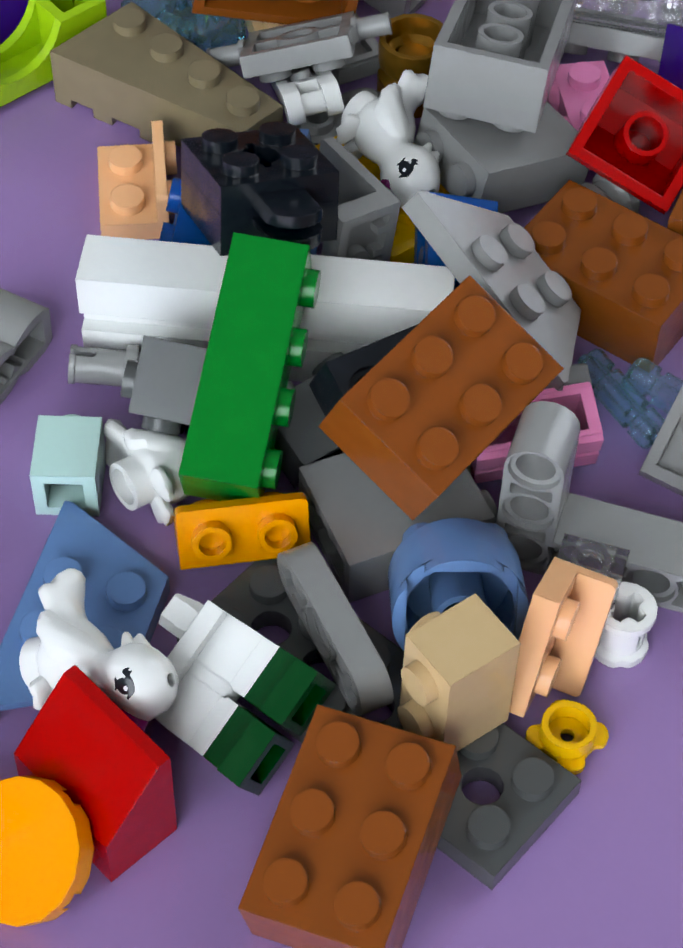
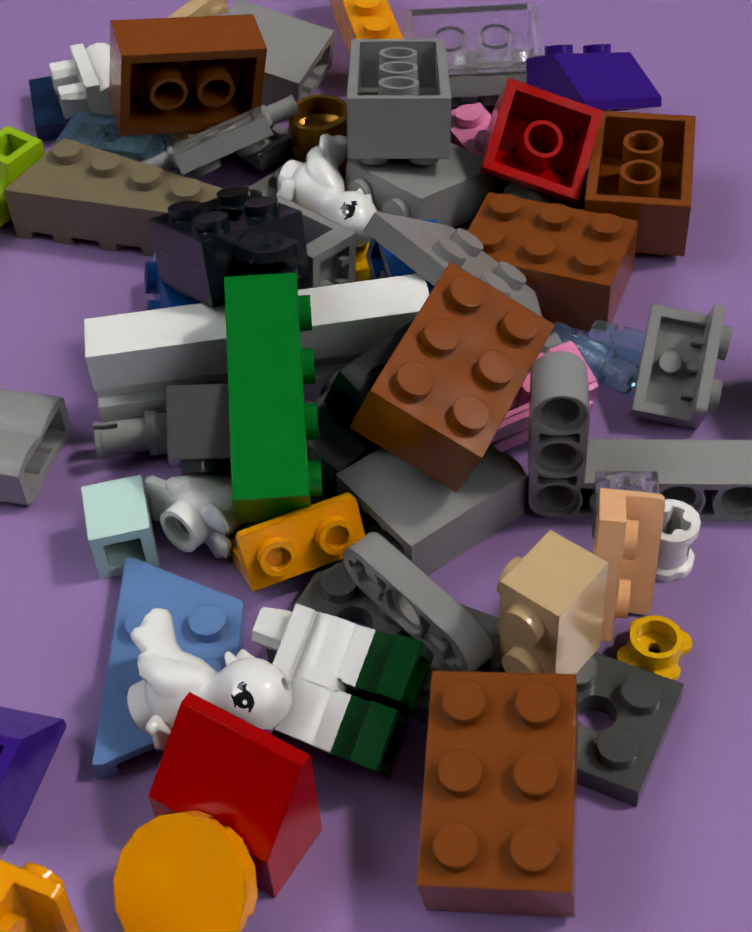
camera: 10 degrees left, 5 degrees down
(135, 186) = (110, 279): light nougat bracket -> none
(308, 94) = (242, 171): white plate -> none
(450, 562) = (504, 522): medium blue brick -> none

